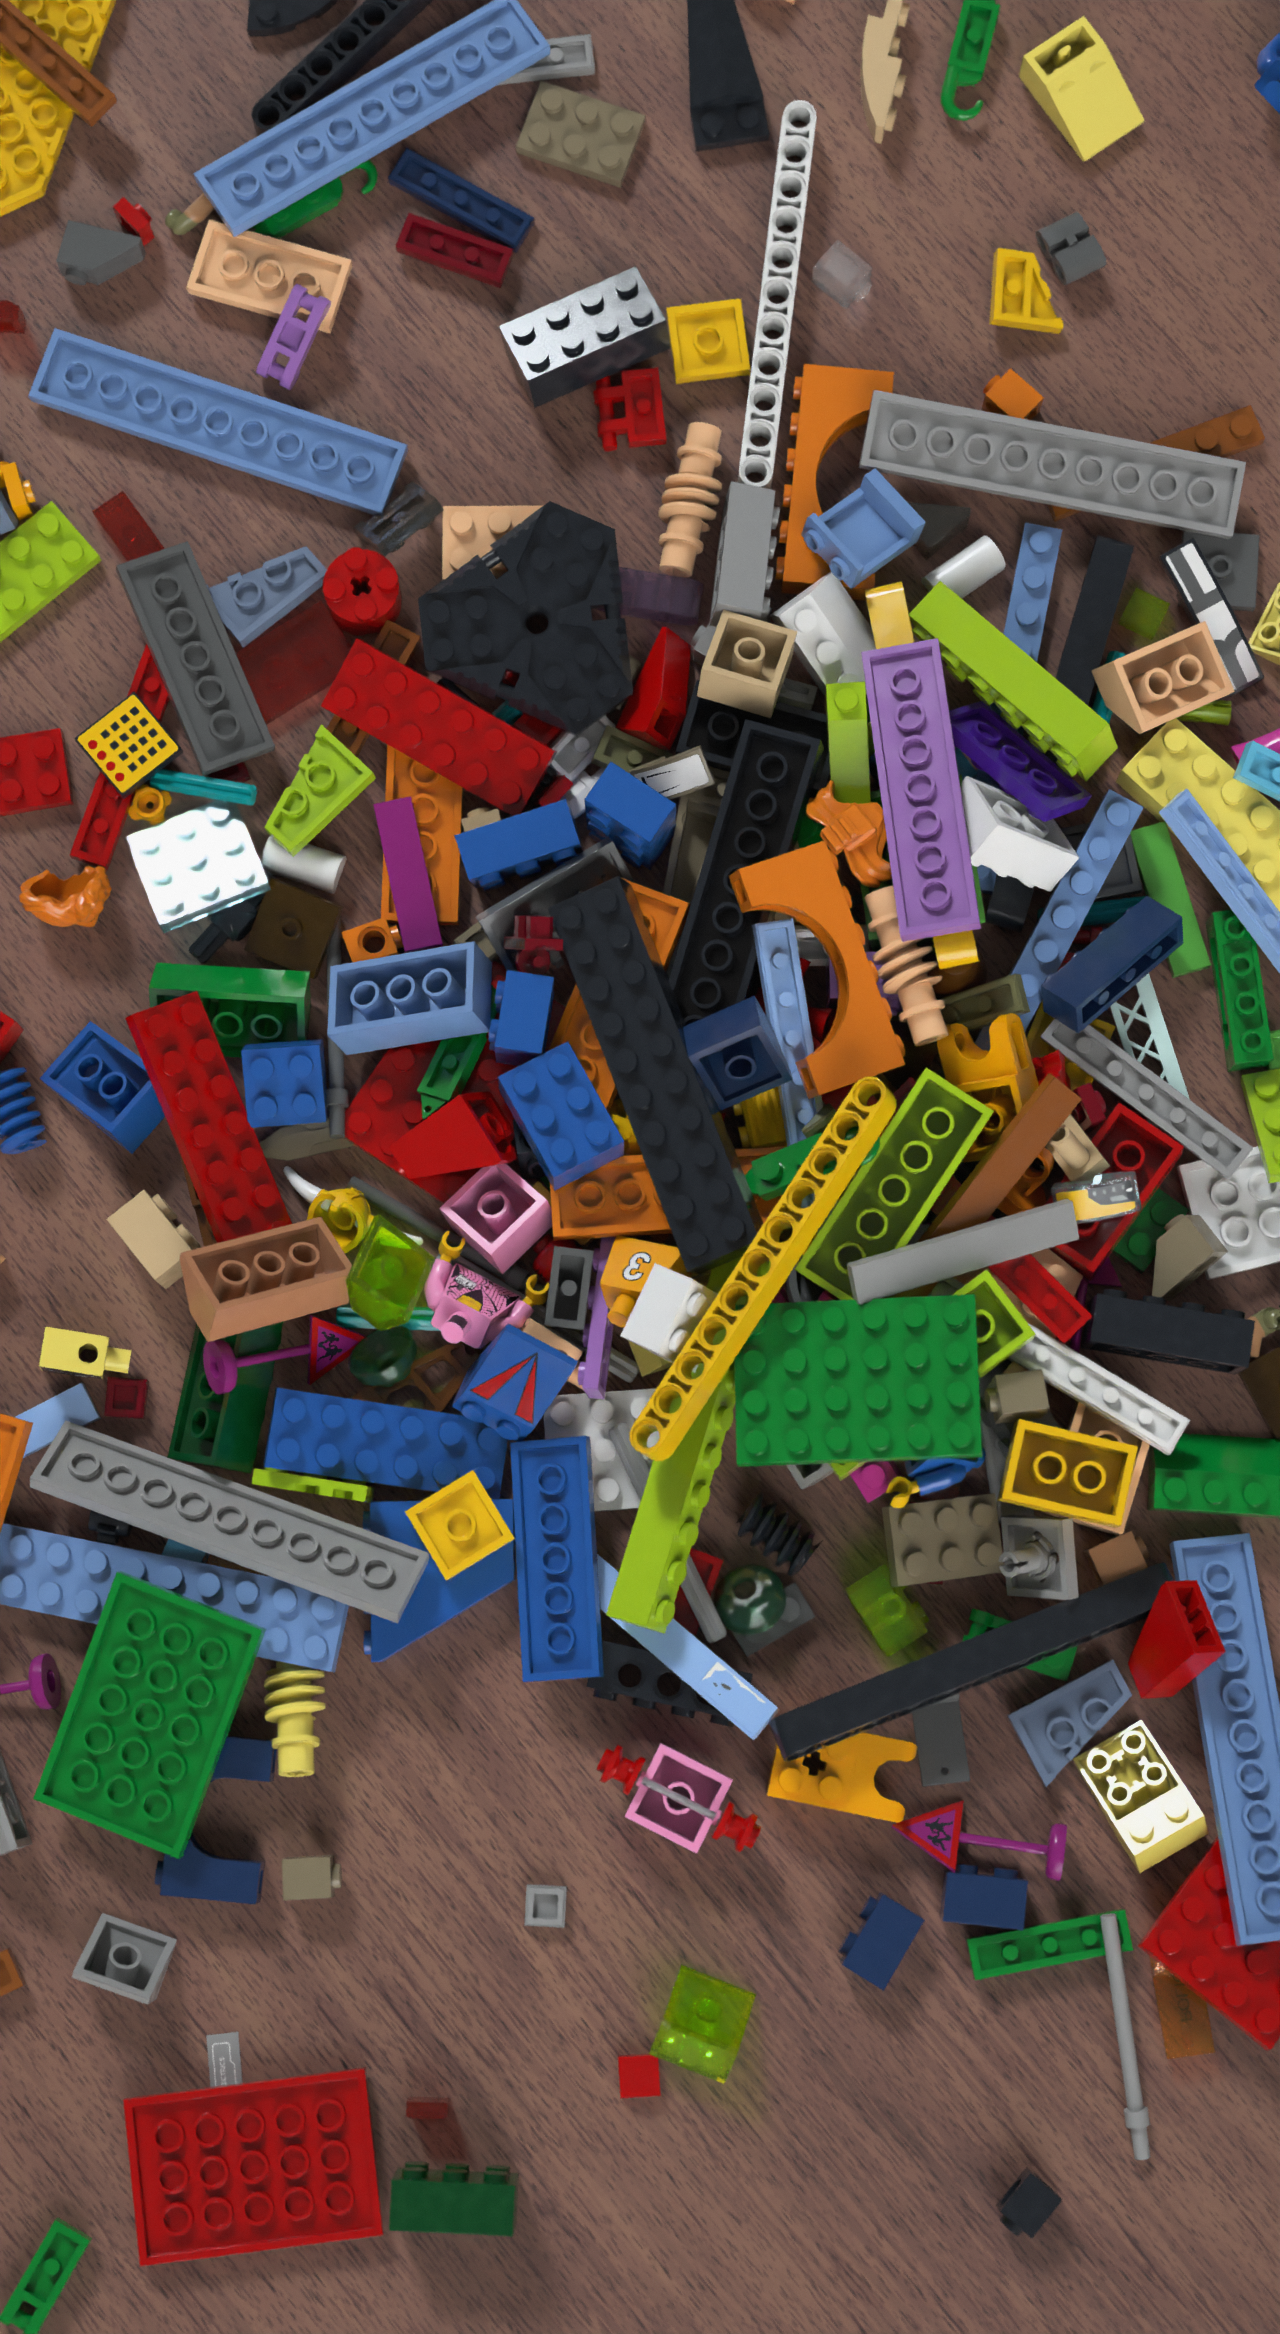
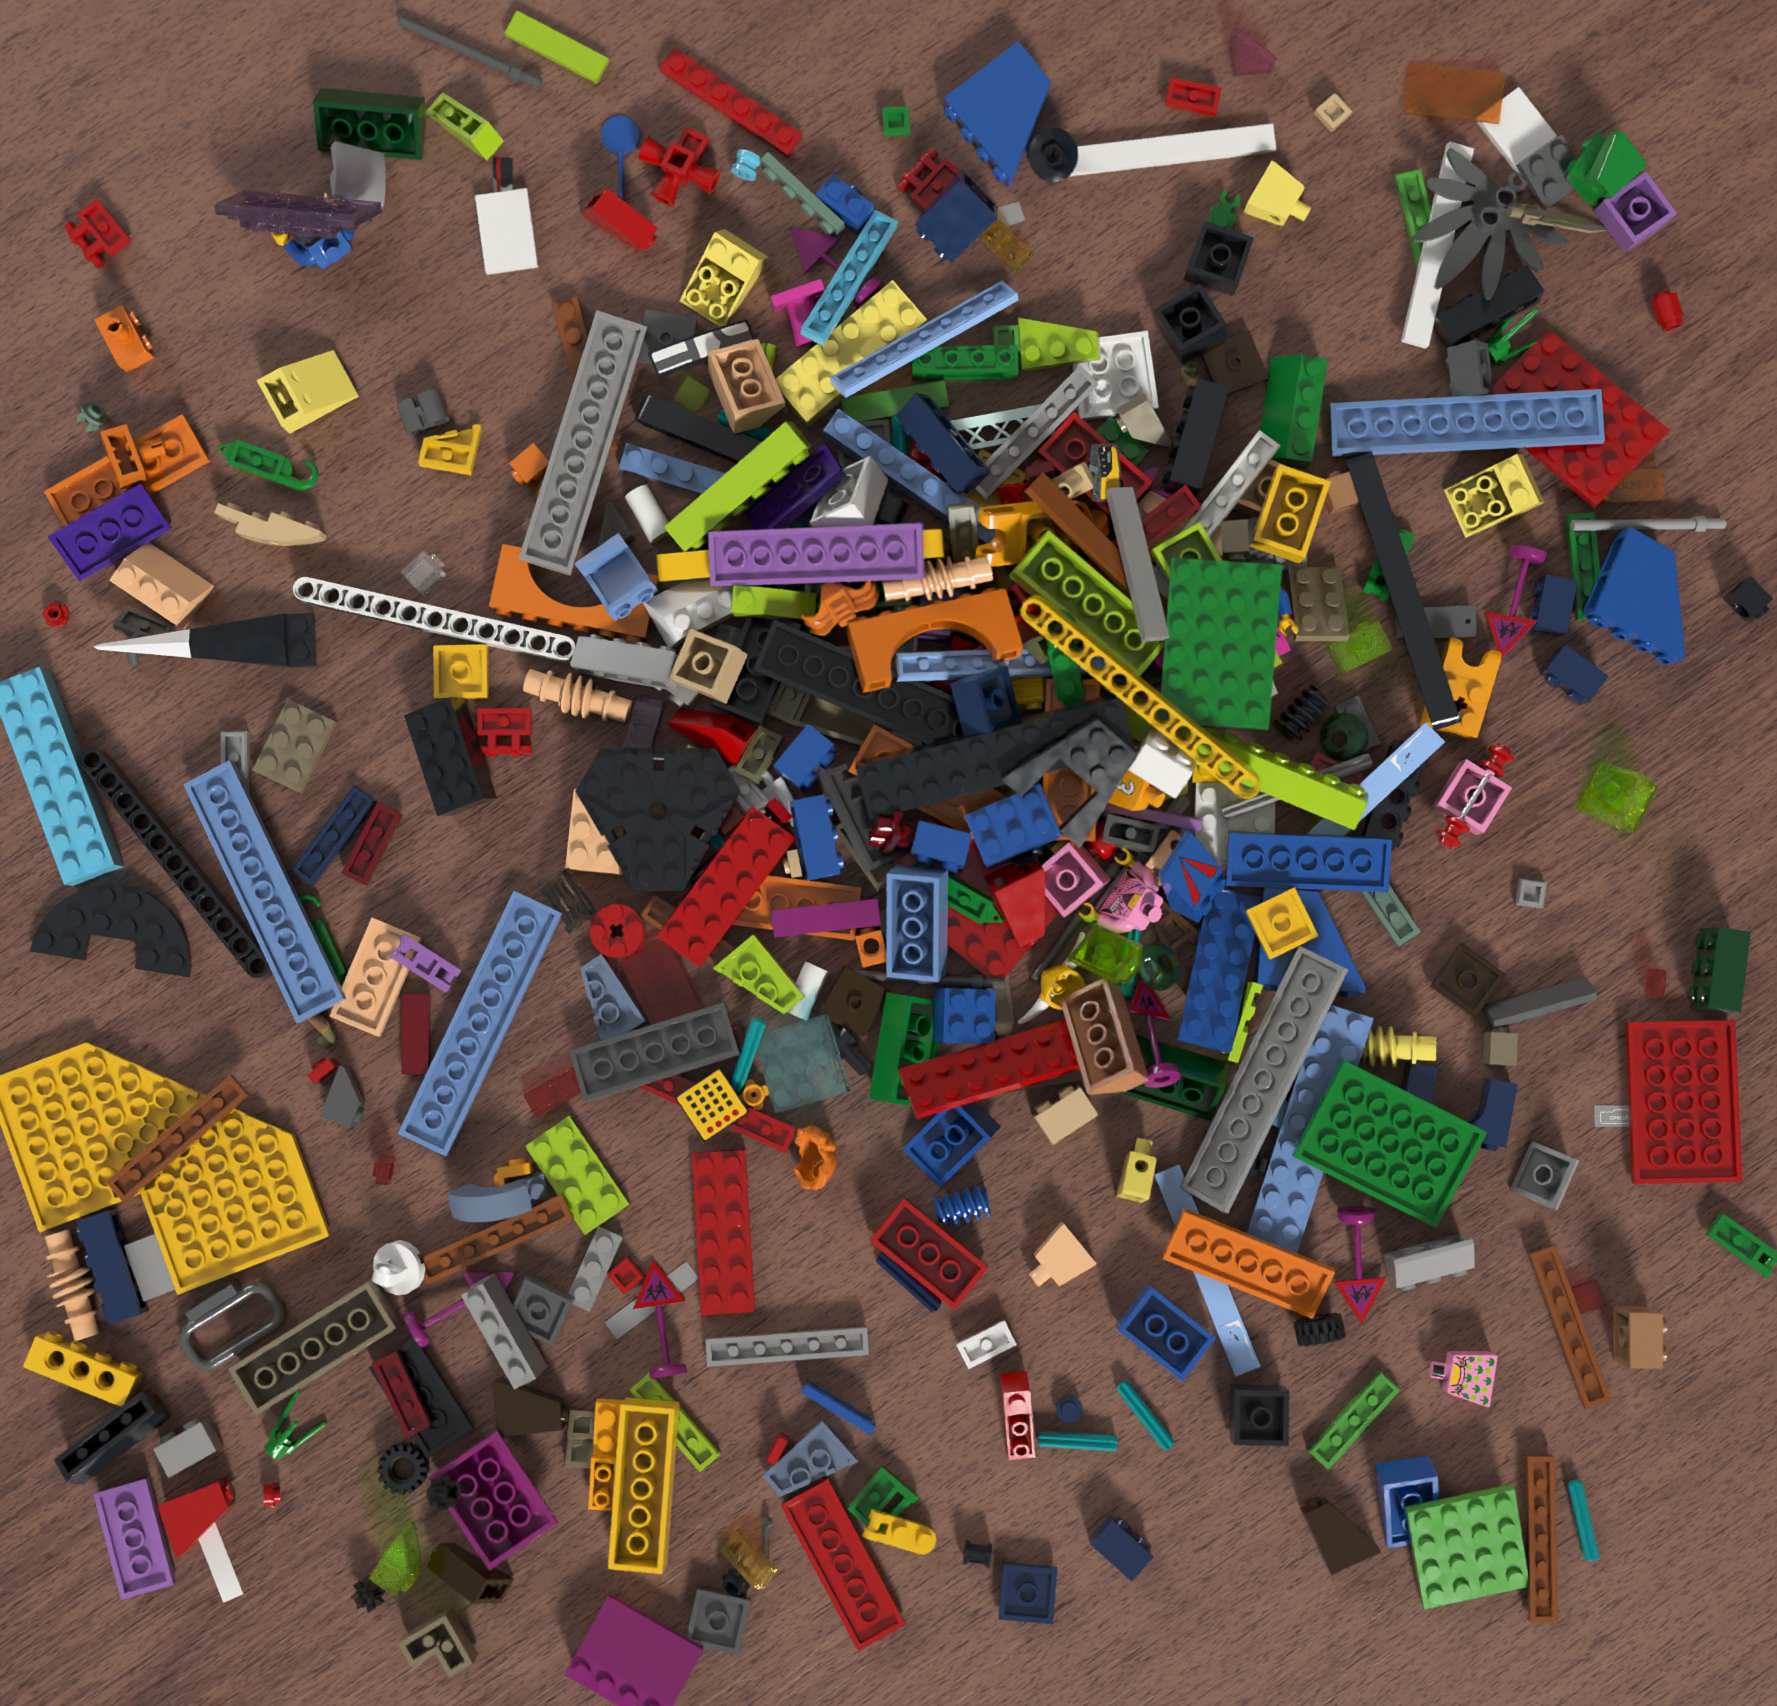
camera: 85 degrees left, 5 degrees up
(126, 1398) = (1167, 1145): dark red tile -> none
(196, 339) = (416, 1033): none -> dark red tile
(382, 1932) = (1540, 1002): none -> dark grey tile
(406, 1819) = (1467, 980): none -> dark brown plate
(491, 1697) = (1392, 915): none -> sand green plate
(639, 2076) = (1645, 843): red tile -> none
(670, 1210) = (1095, 756): none -> black wing
(676, 774) = (778, 727): white slope -> none
(1010, 2029) = (1639, 596): none -> blue slope
(1034, 1558) = (1335, 548): light grey plate -> none
(1068, 1717) = (1439, 537): sand blue wing -> none
(1175, 1641) = (1401, 458): red slope -> none

